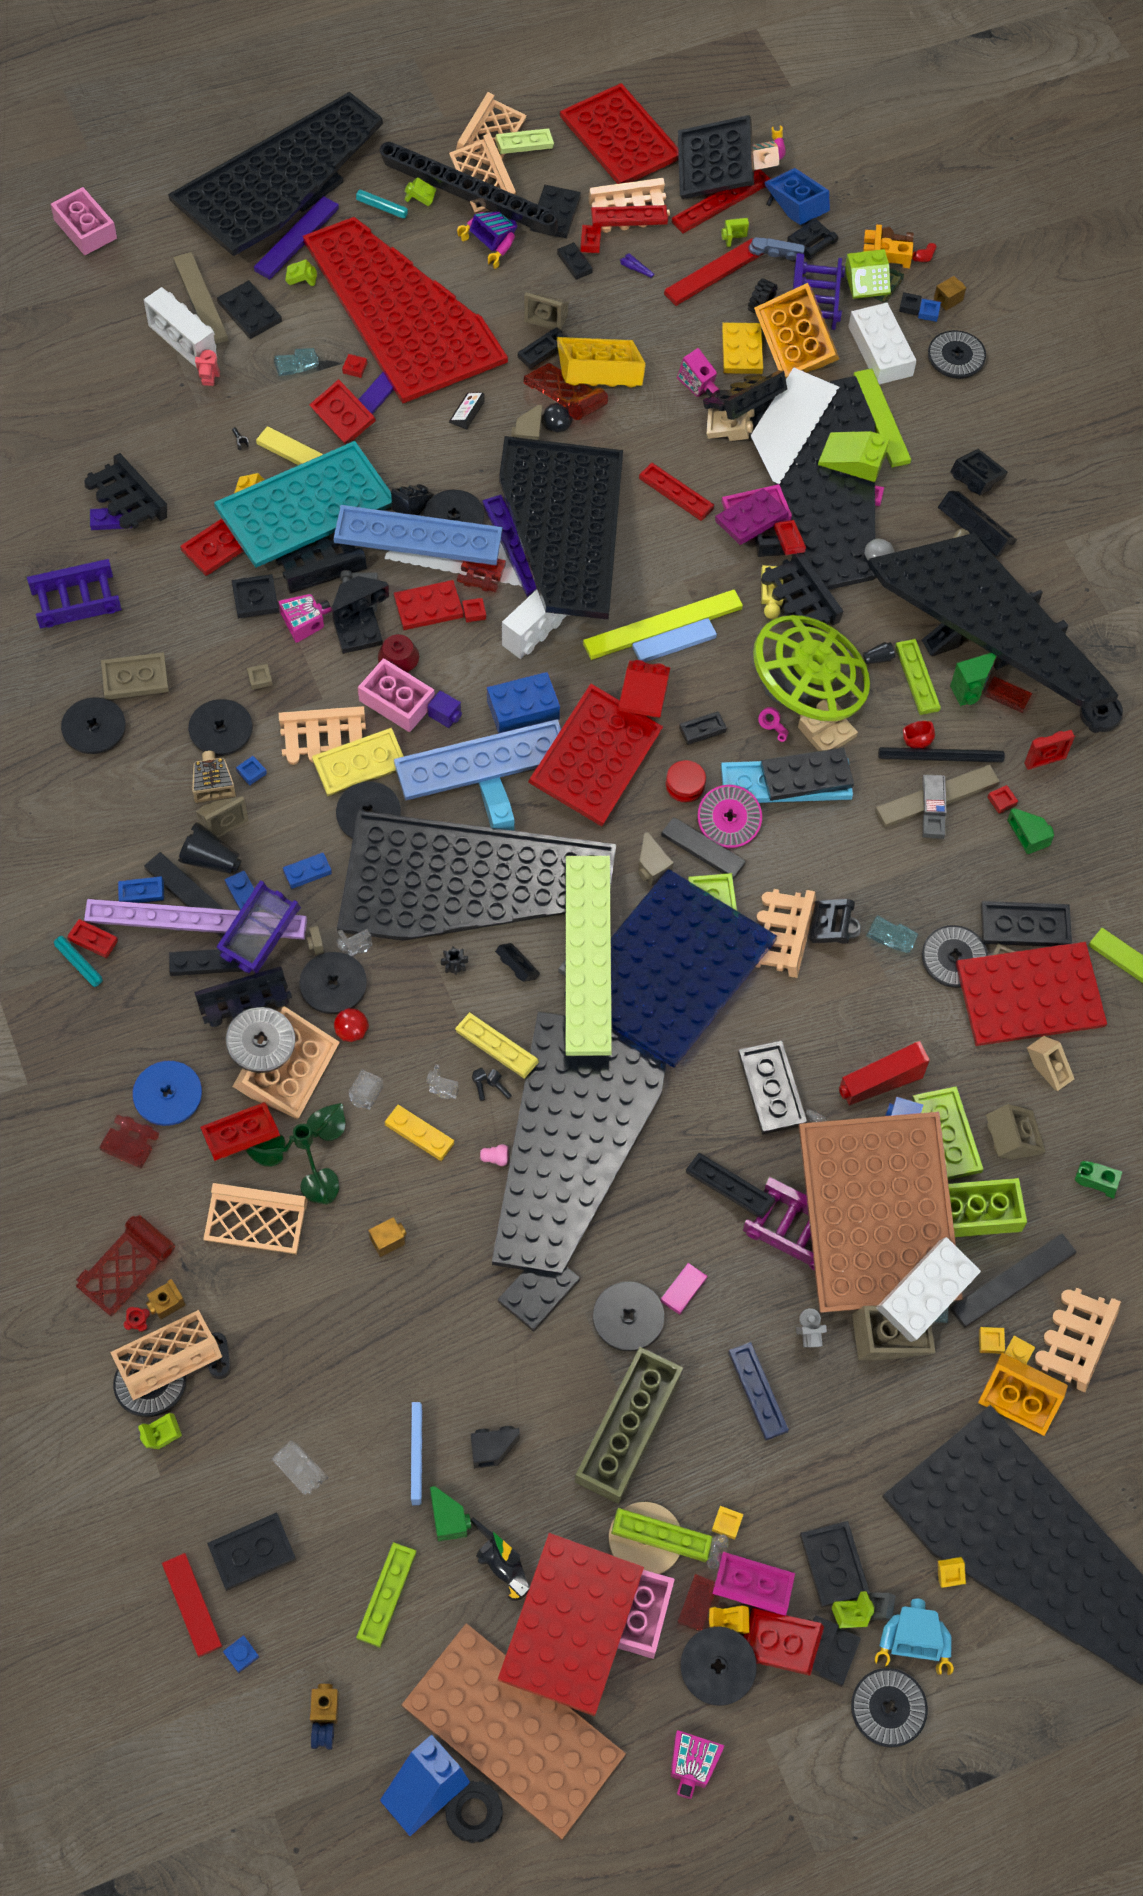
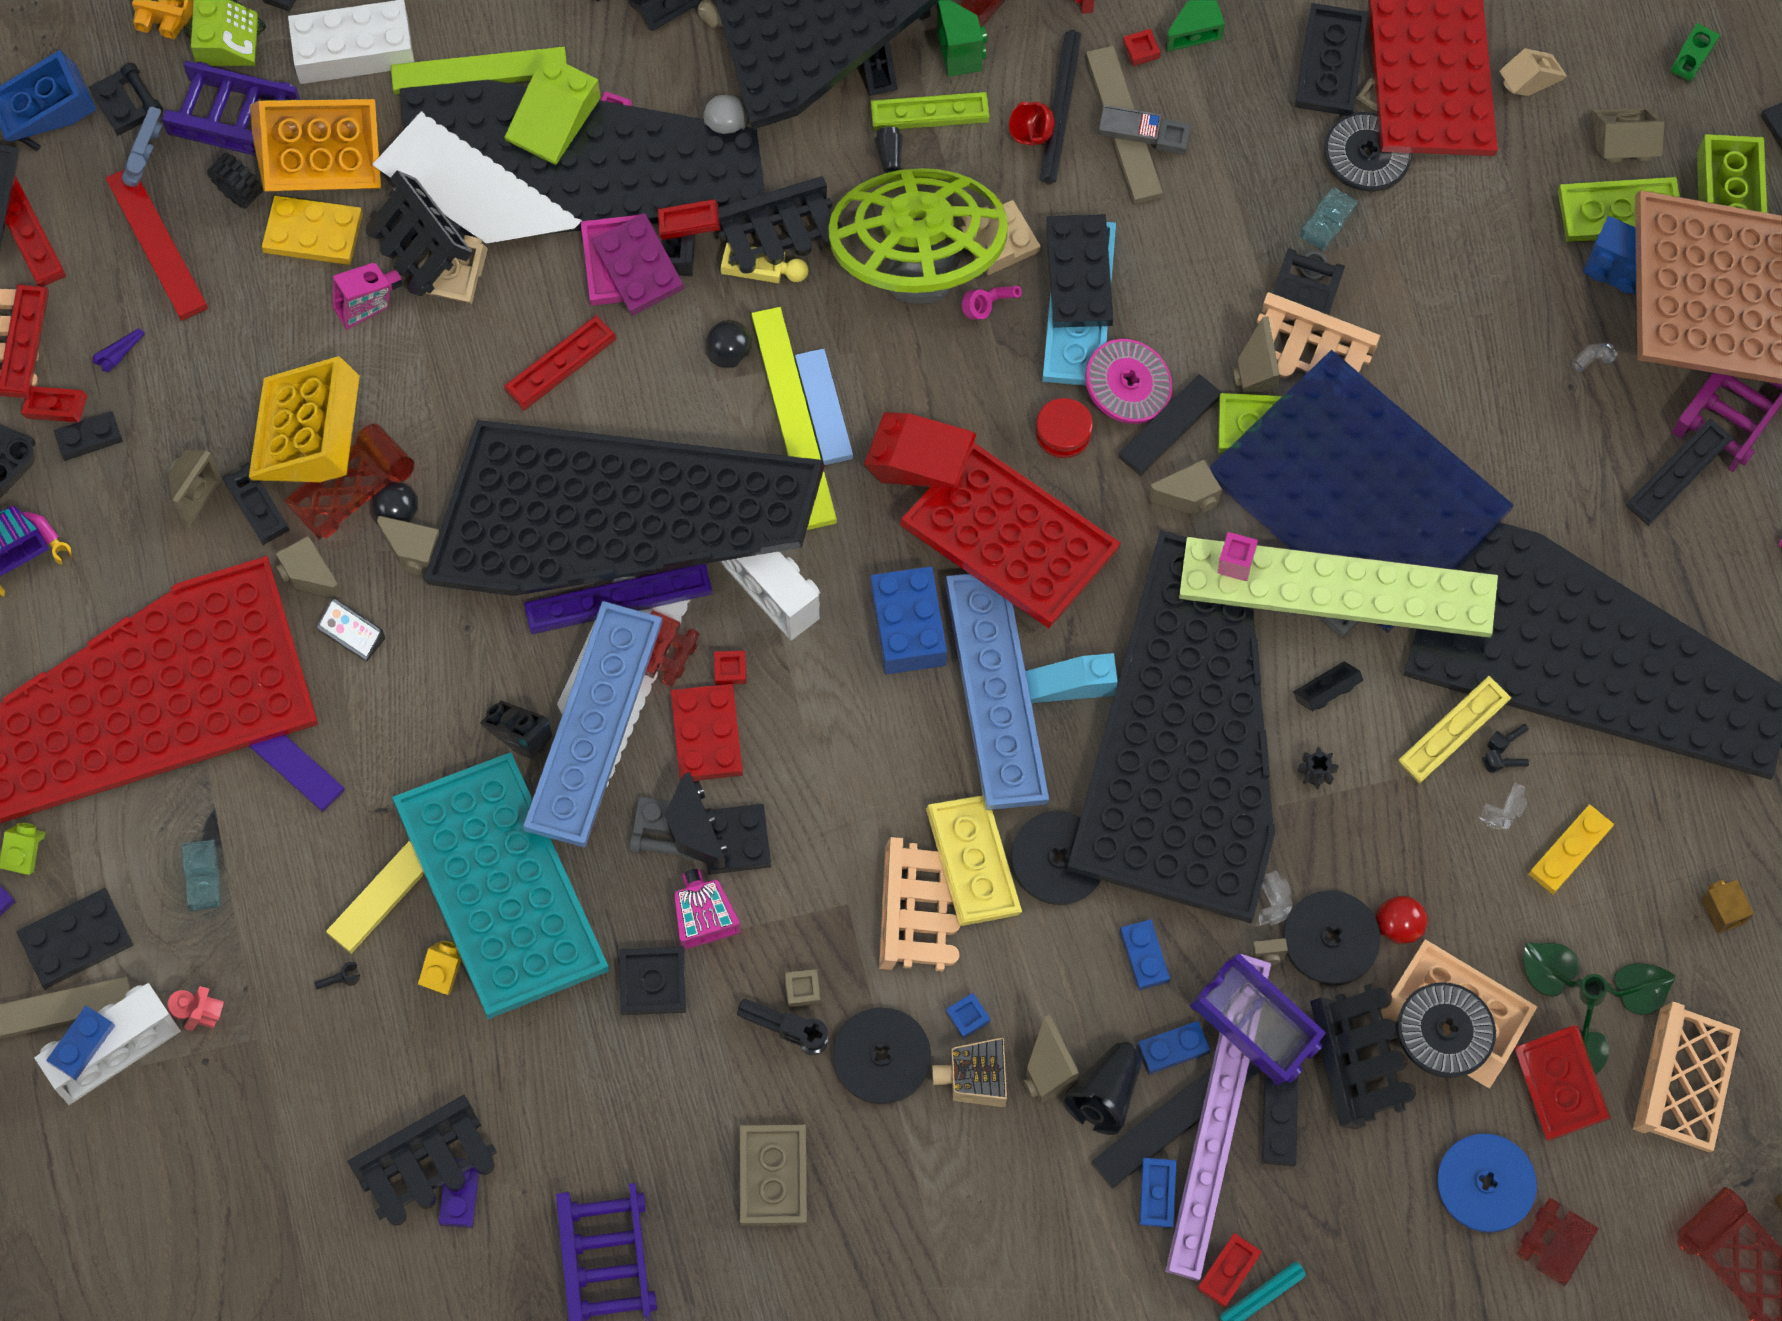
camera: 80 degrees left, 5 degrees up
(99, 738) = (855, 1272): black piece -> none
(171, 304) = (80, 1043): none -> blue plate
(212, 547) = (549, 1037): red plate -> none
(230, 675) = (788, 1026): none -> black connector
(321, 571) = (612, 889): black fence -> none
(342, 412) = (326, 812): red plate -> none
(354, 365) = (227, 787): red plate -> none
(365, 1090) = (1508, 910): clear brick -> none
(396, 695) = (872, 791): bright pink brick -> none
(399, 651) = (796, 784): dark red cone -> none
(444, 709) = (901, 729): dark purple brick -> none
(453, 501) = (535, 656): black piece -> none
(497, 1155) = (1614, 753): bright pink piece -> none
(504, 379) = (307, 570): none -> dark tan slope
(592, 875) = (1237, 556): none -> dark pink panel
(702, 728) = (979, 392): black plate -> none
(709, 580) = (728, 343): none -> black hair
(734, 229) = (82, 199): lime bracket -> none
(761, 891) = (1258, 361): none -> dark tan slope
(772, 1087) = (1541, 399): plate -> none
(885, 1074) = (1540, 259): red slope -> none

